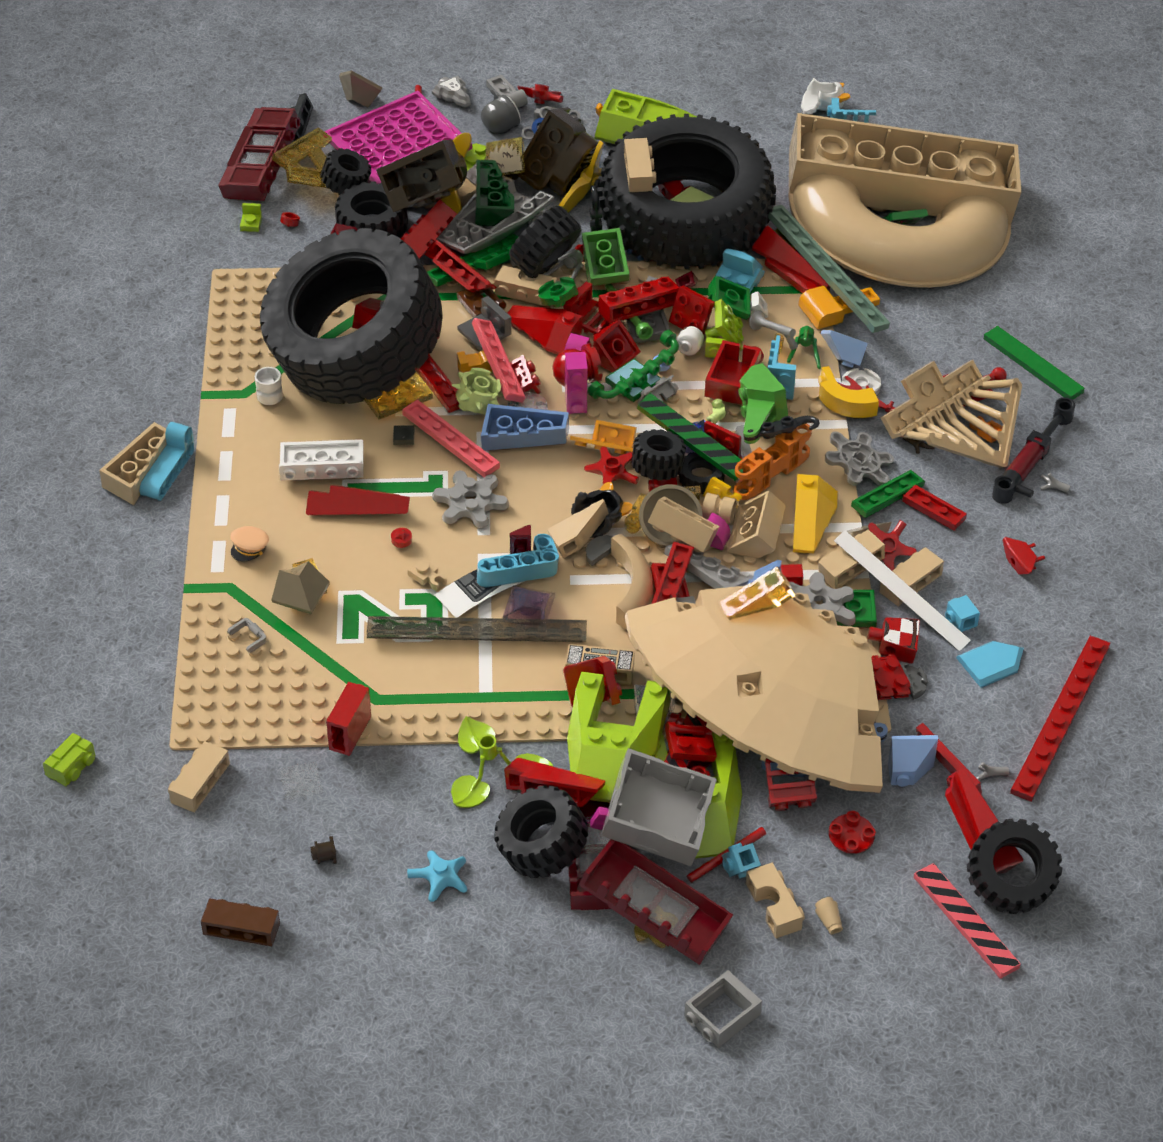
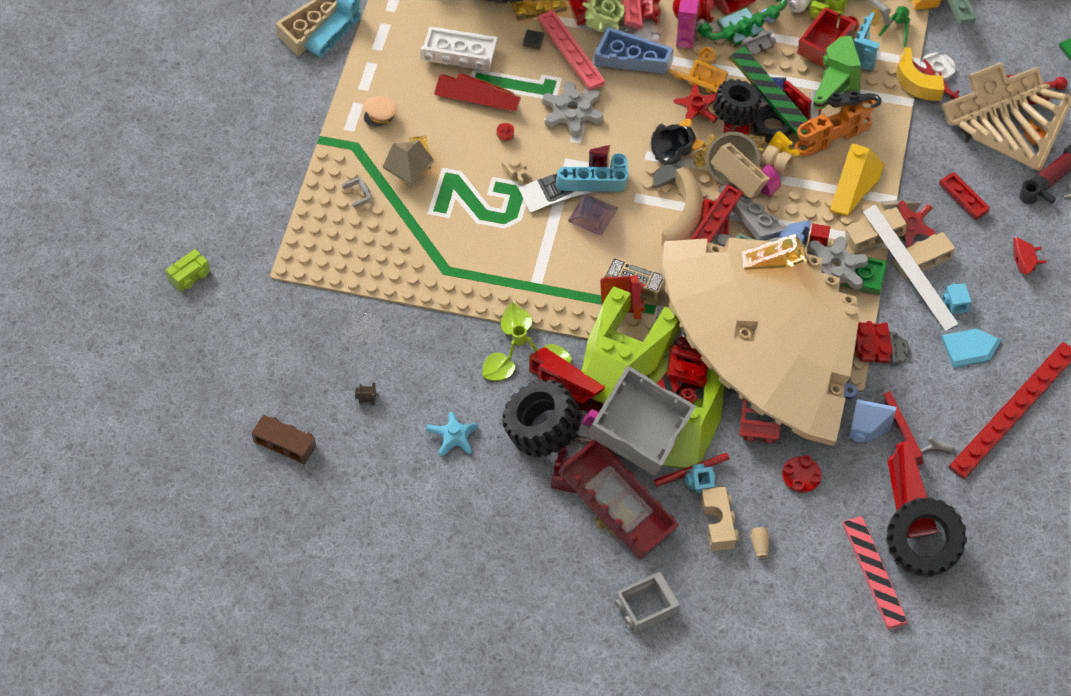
camera: 15 degrees right, 10 degrees up
(198, 776) = (285, 307): tan brick -> none
(348, 718) = (415, 284): red brick -> none
(476, 629) = (544, 226): clear smoke plate -> none
(576, 530) = (650, 155): tan slope -> none
(606, 414) = (707, 55): none -> light orange tile
(718, 411) = (805, 70): yellowish green arm -> none
(757, 526) = (804, 183): tan slope -> none
(845, 348) = (932, 33): light blue slope -> none
(852, 453) = (918, 132): light grey plate -> none
(886, 493) = (927, 174): green tile -> none
(897, 637) = (894, 309): torso -> none

